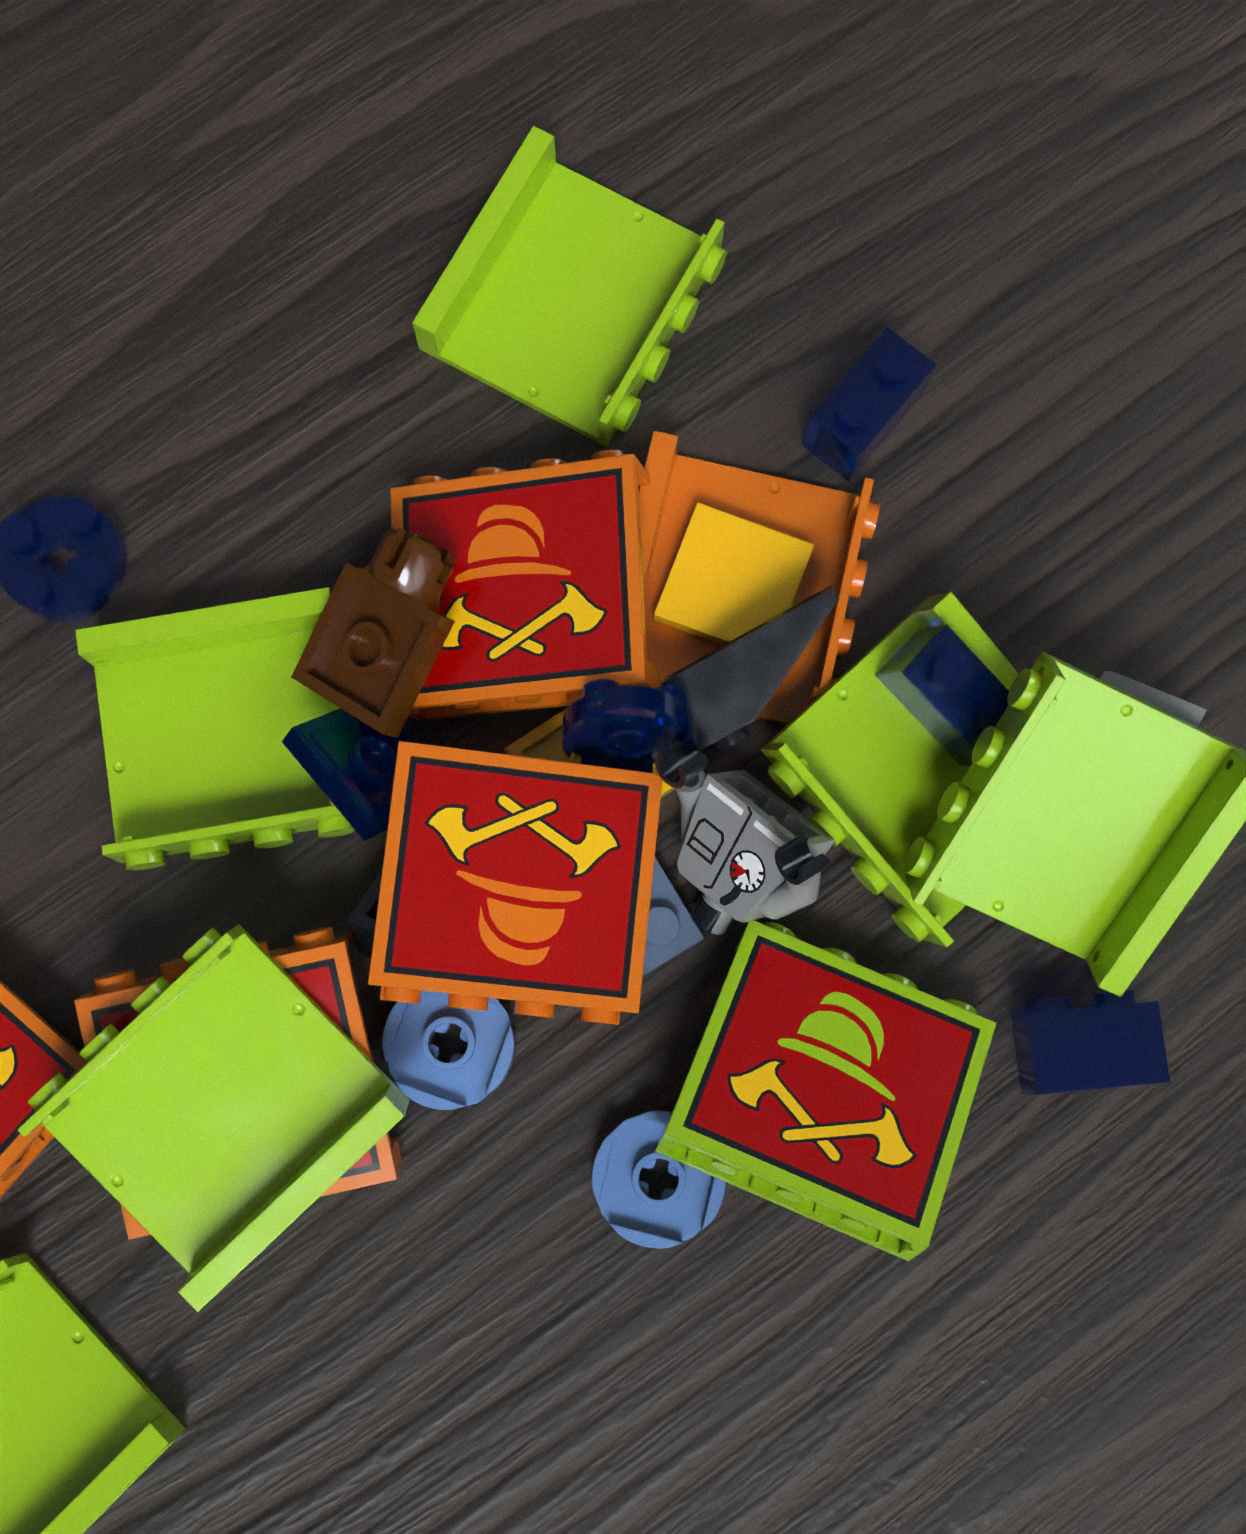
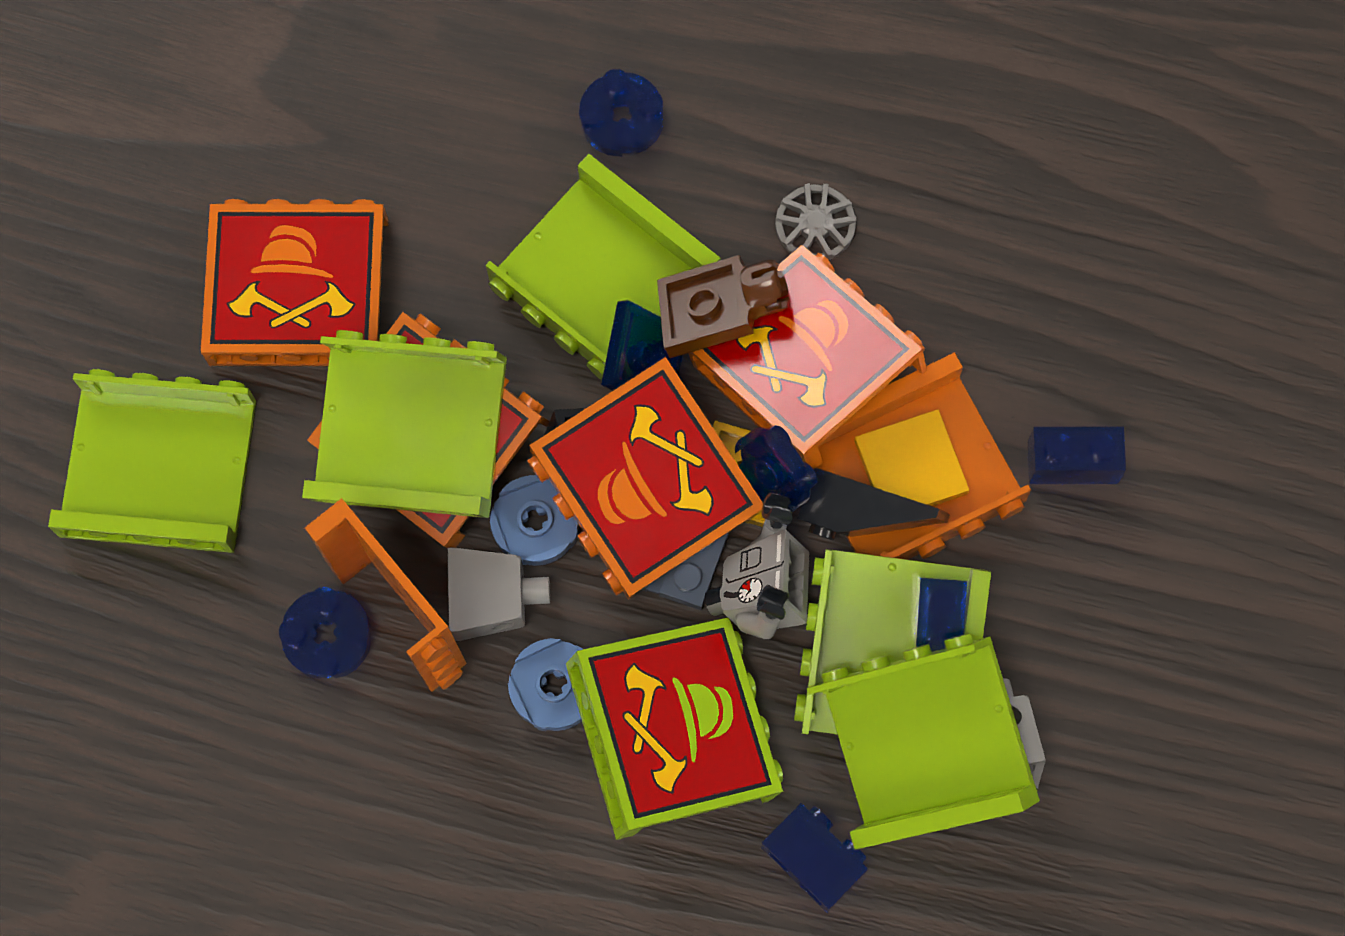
camera: 55 degrees right, 5 degrees down
(301, 1304) = (348, 550): none -> orange panel
(351, 1432) = (325, 659): none -> clear blue plate
(370, 455) = (816, 220): none -> light grey wheel
(491, 1166) = (489, 592): none -> light grey torso
(567, 294) = (1000, 245): lime panel -> none

